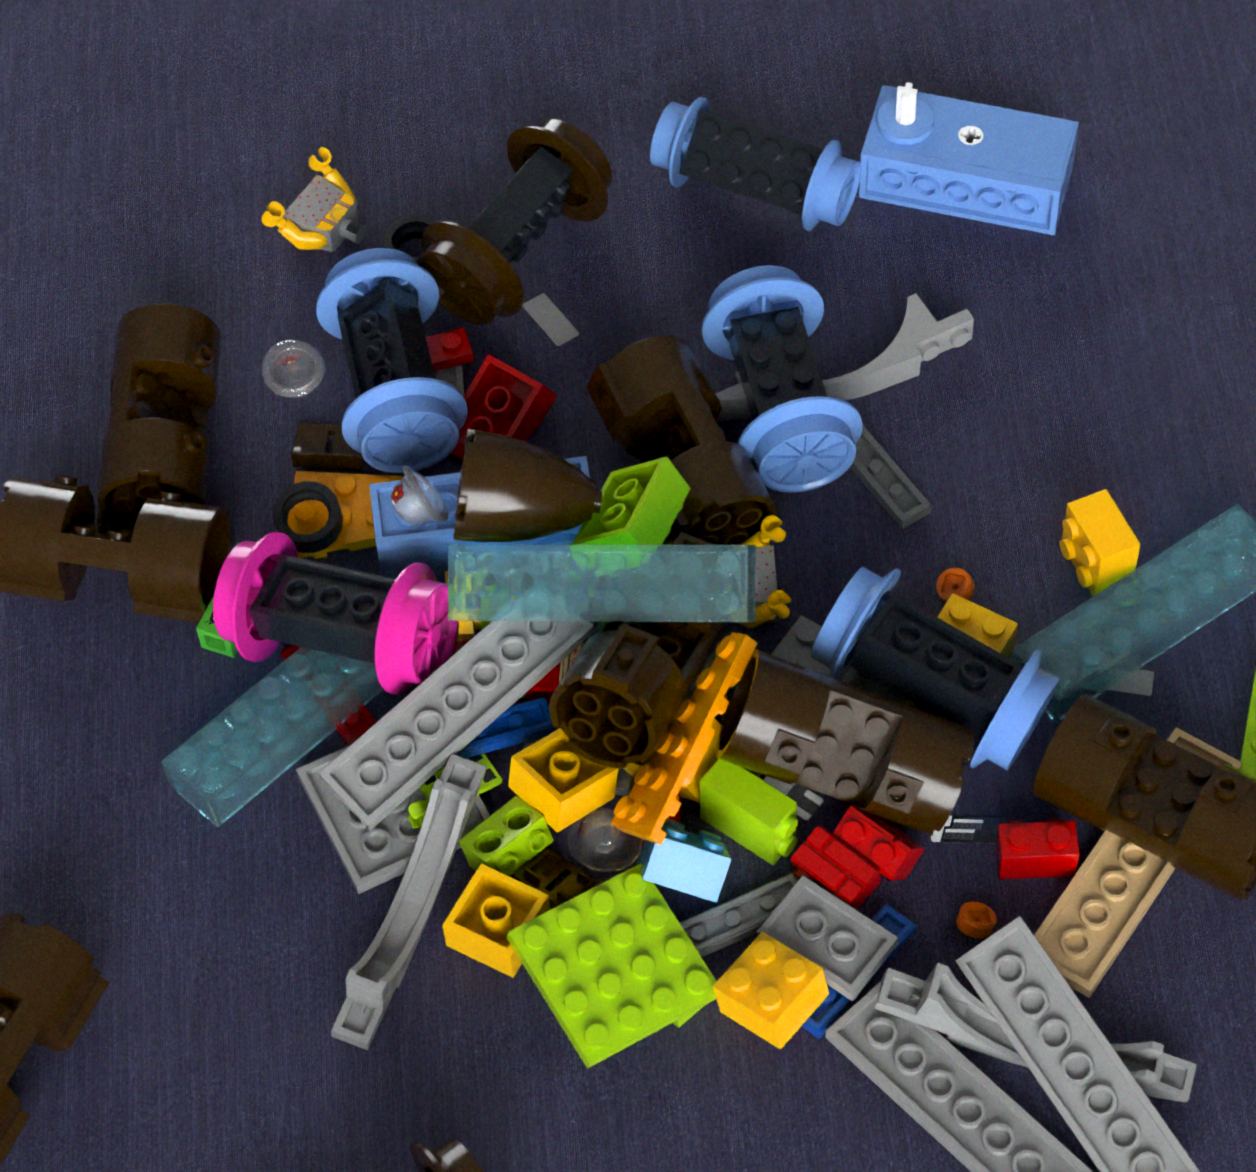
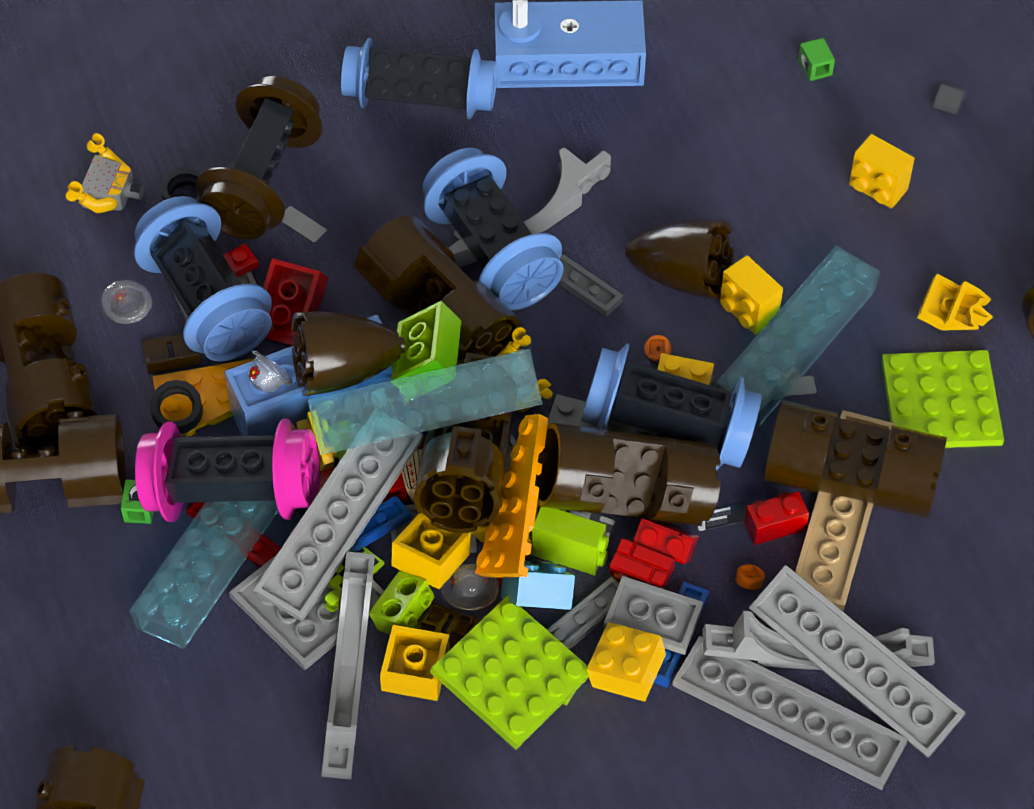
camera: 20 degrees left, 0 degrees up
(1029, 471) = (685, 255): none -> dark brown cylinder

